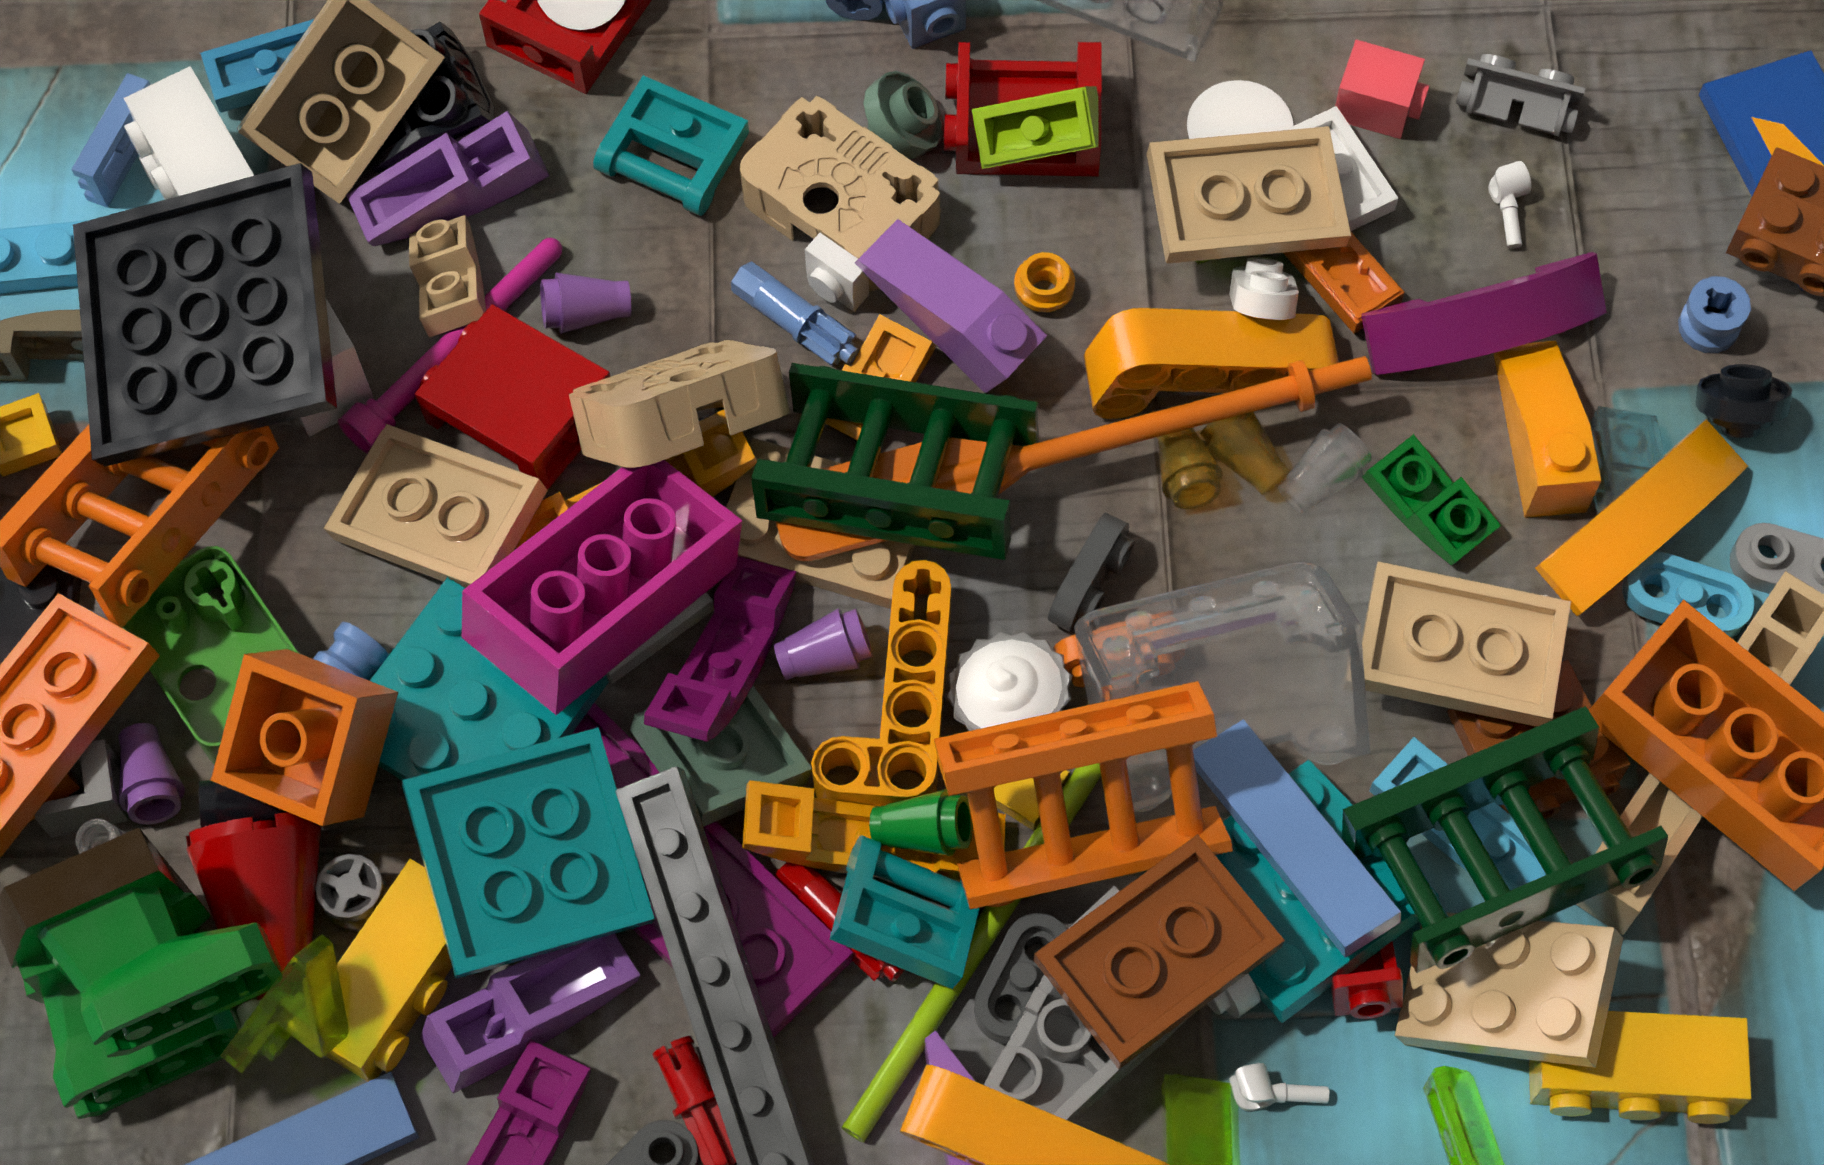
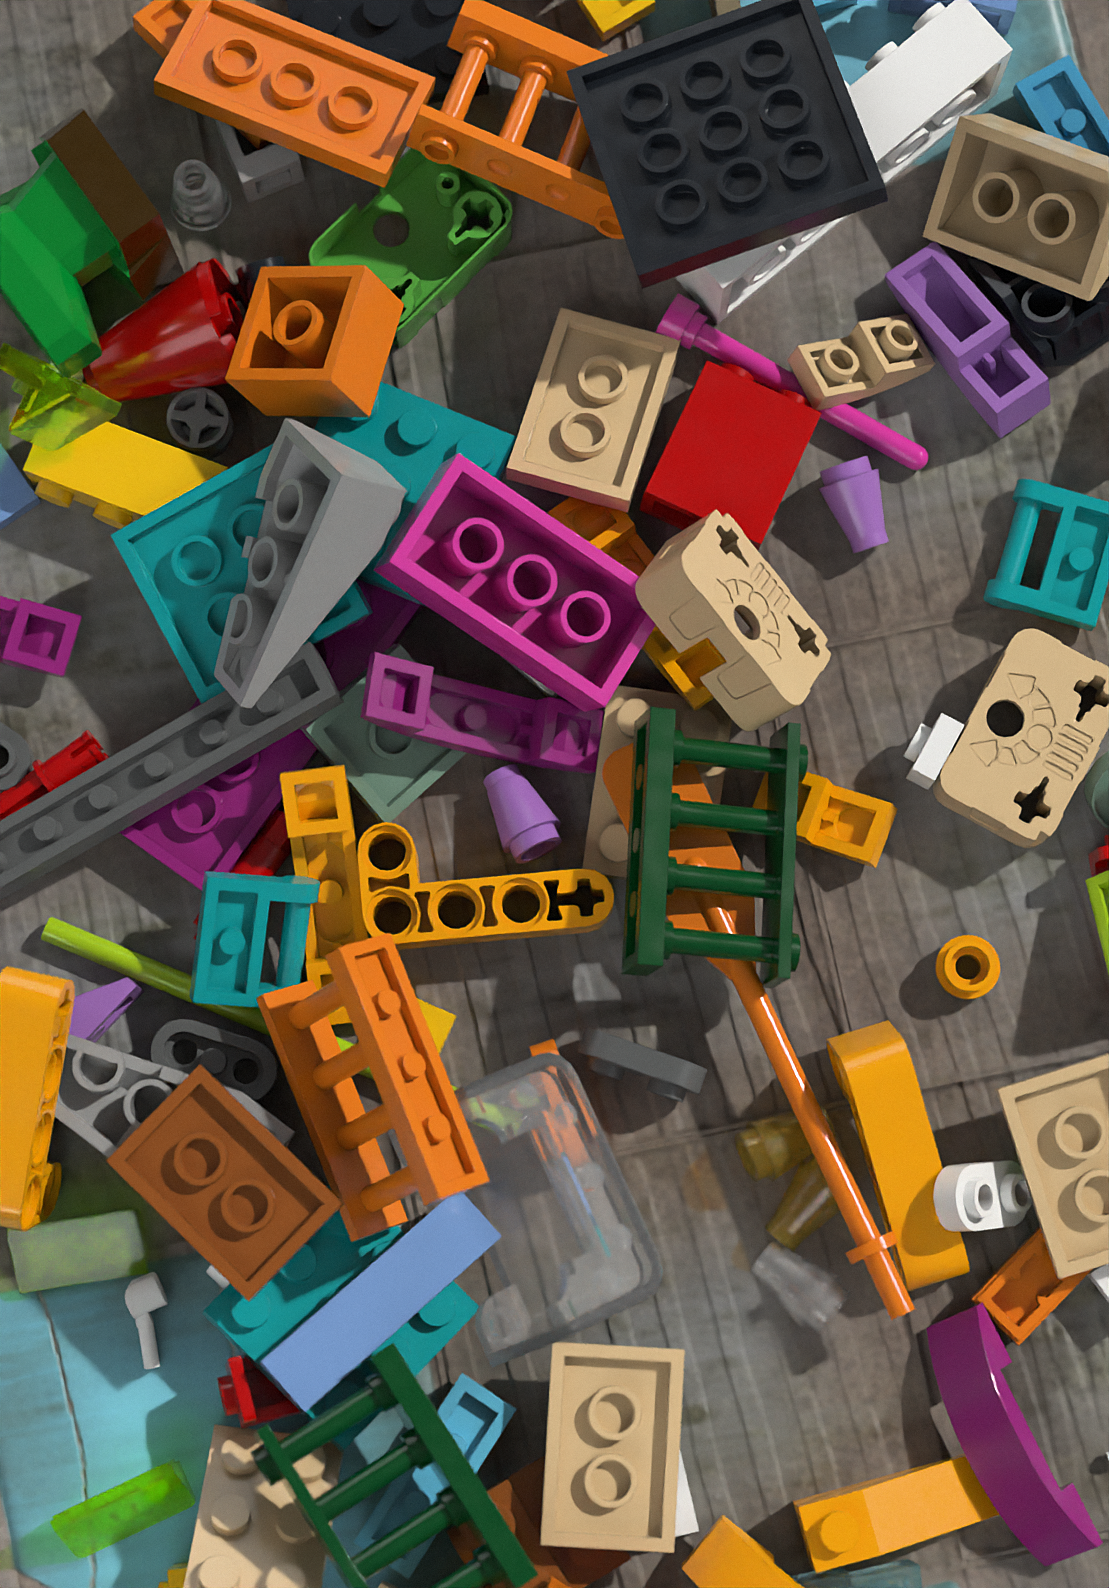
camera: 80 degrees right, 15 degrees up
(147, 777) = (284, 207): medium lavender cone -> none
(353, 652) = (427, 366): medium blue wheel -> none
(518, 759) = (315, 537): none -> light grey wedge
(525, 1003) = (111, 604): medium lavender slope -> none
(805, 322) = (881, 719): medium blue piece -> none
(924, 823) = (334, 925): green cone -> none
(952, 305) = (907, 872): medium lavender slope -> none
(1007, 681) = (498, 1000): white piece -> none
(1428, 503) = (788, 1400): green slope -> none

